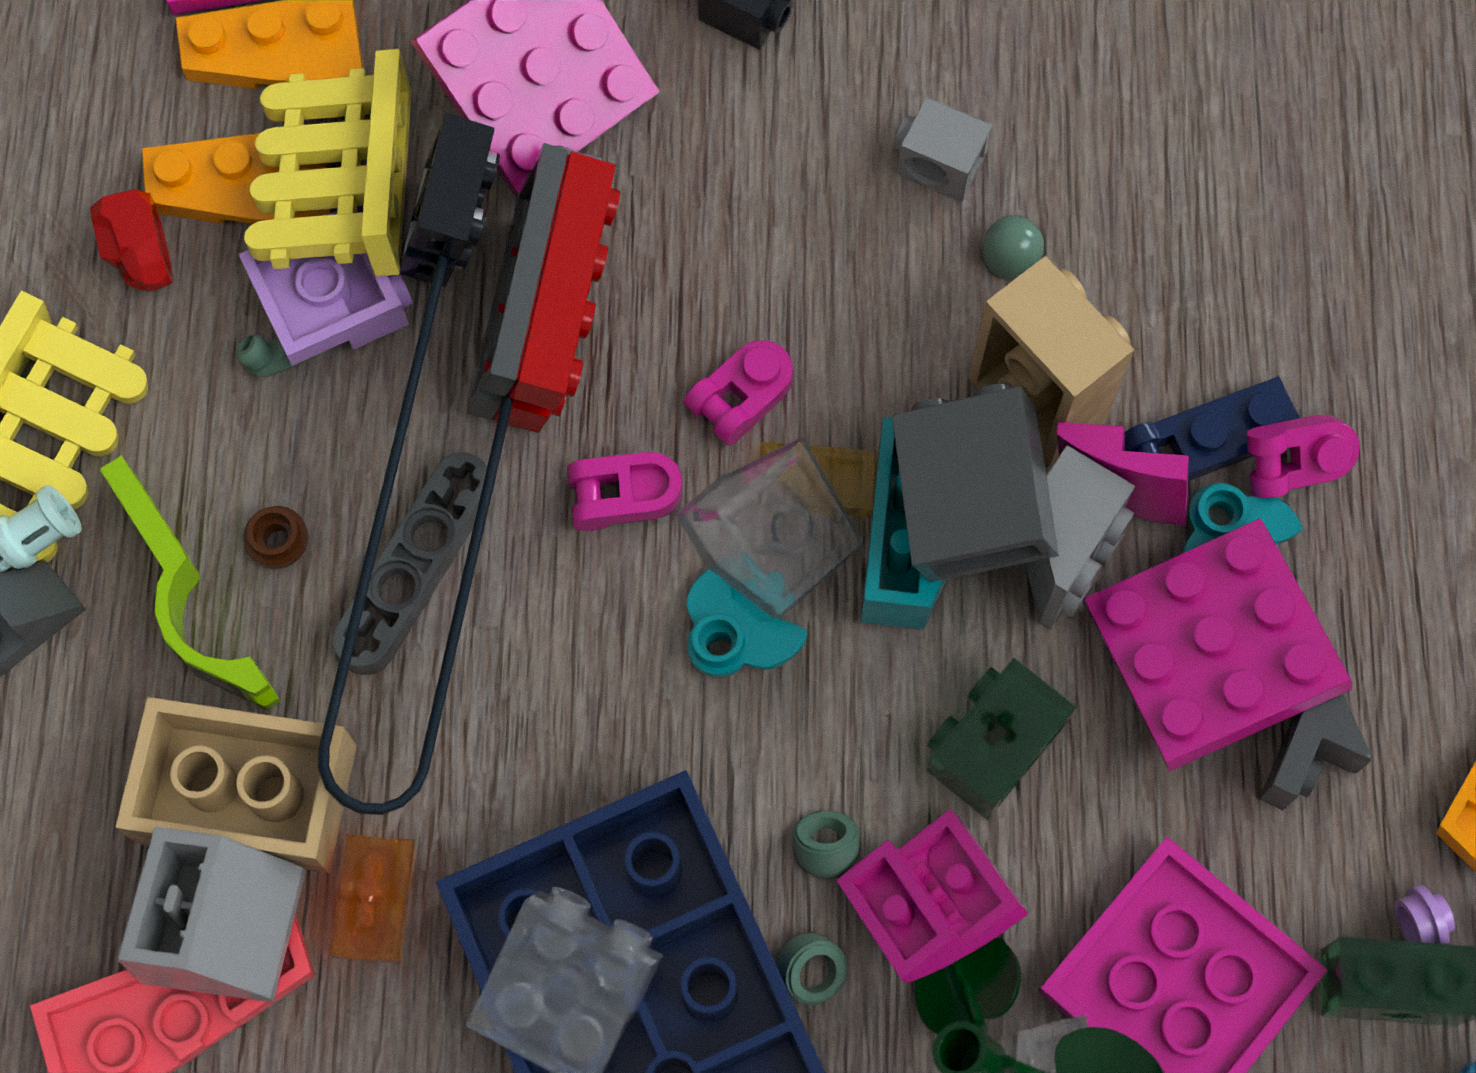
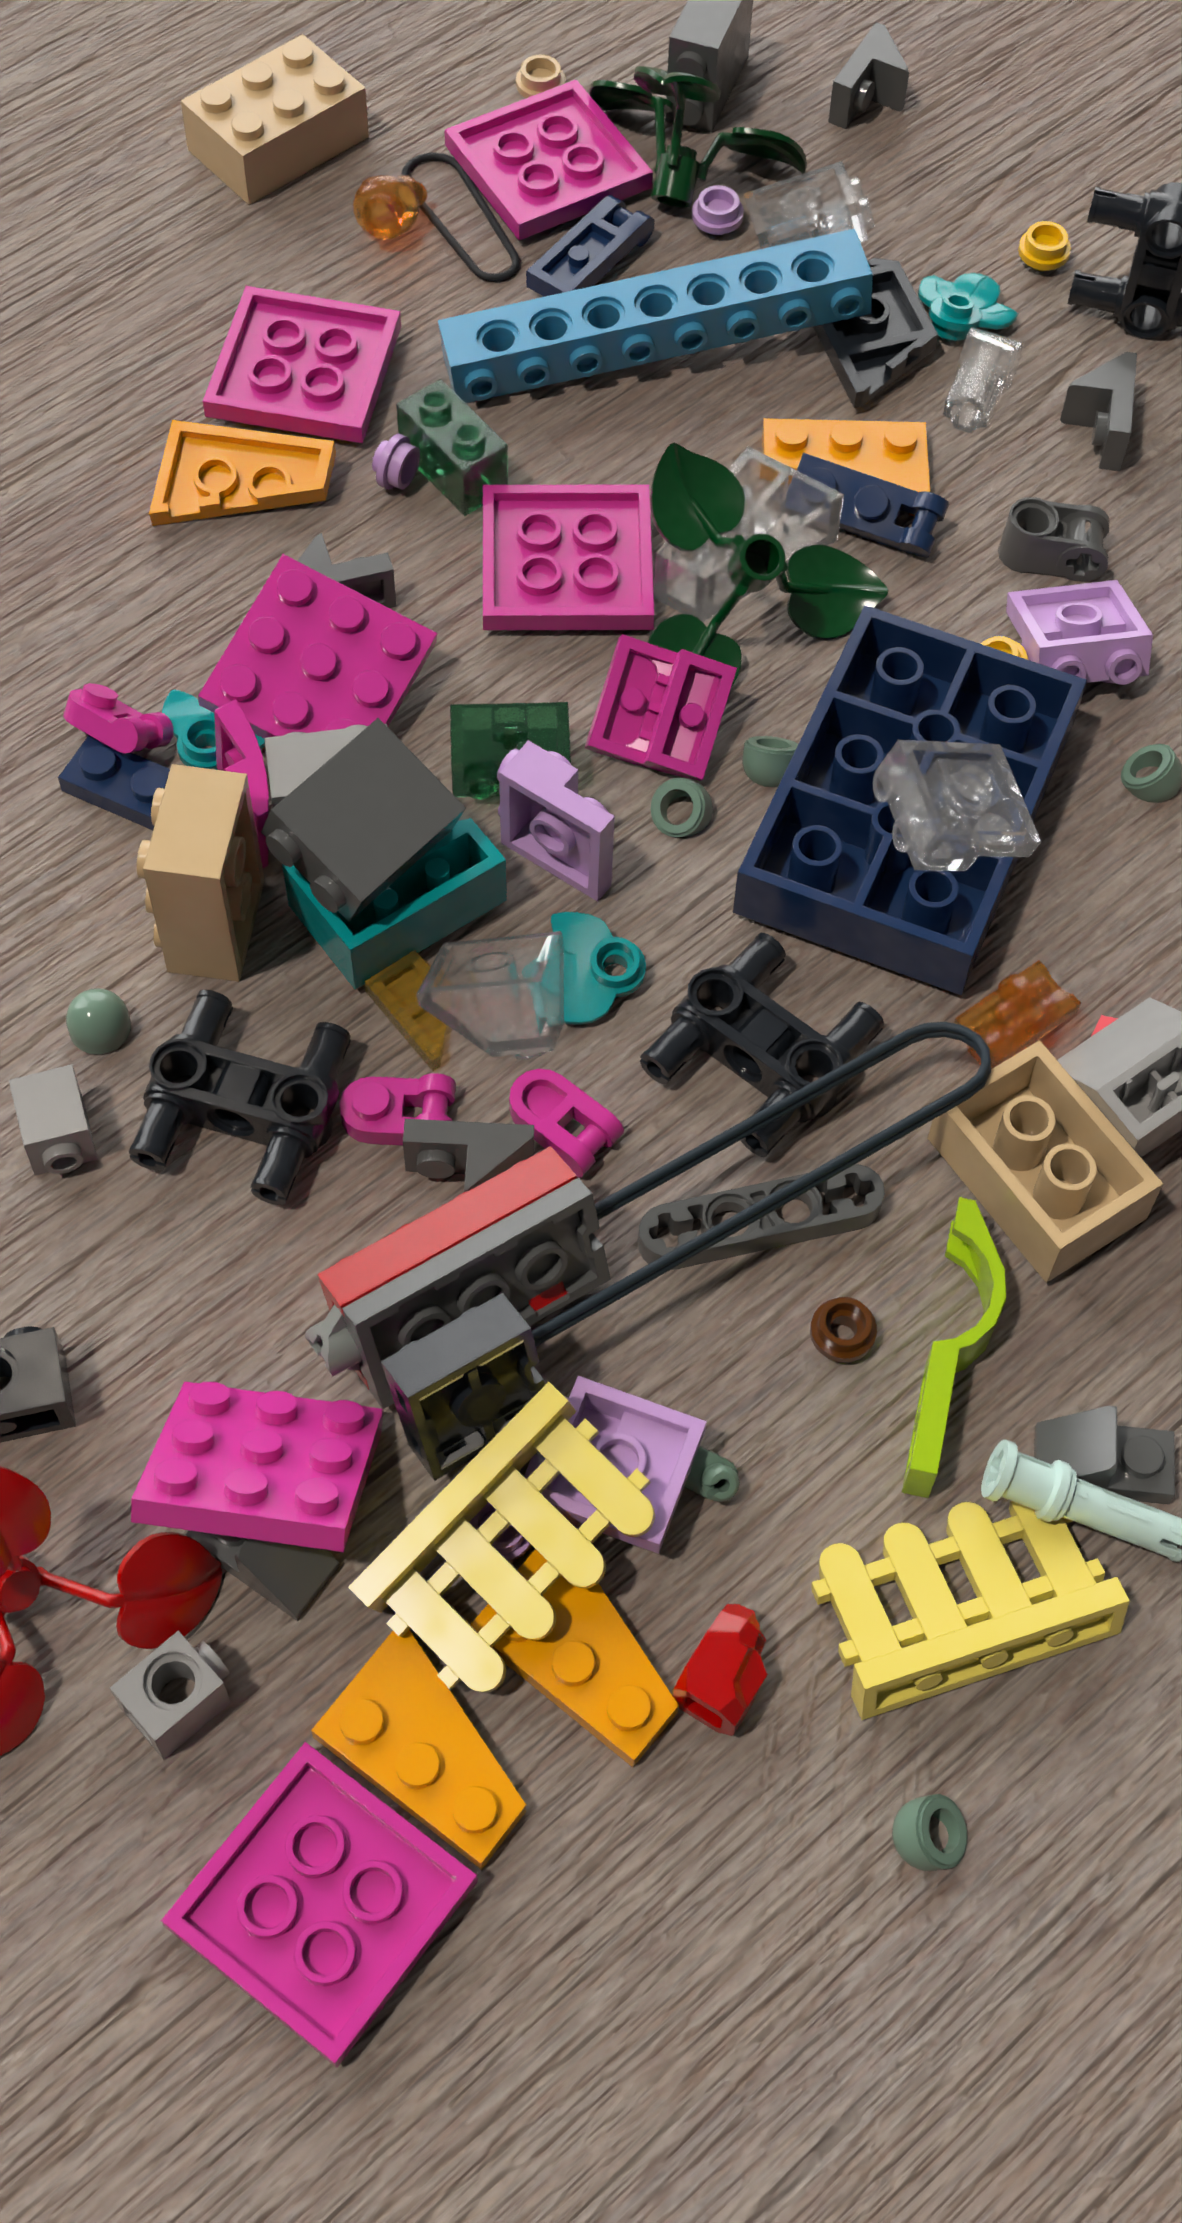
camera: 135 degrees left, 10 degrees down
(545, 688) = (759, 1038): none -> black piece
(645, 405) = (466, 1148): none -> dark grey slope
(849, 284) = (240, 1096): none -> black piece
(899, 686) = (552, 823): none -> lavender plate

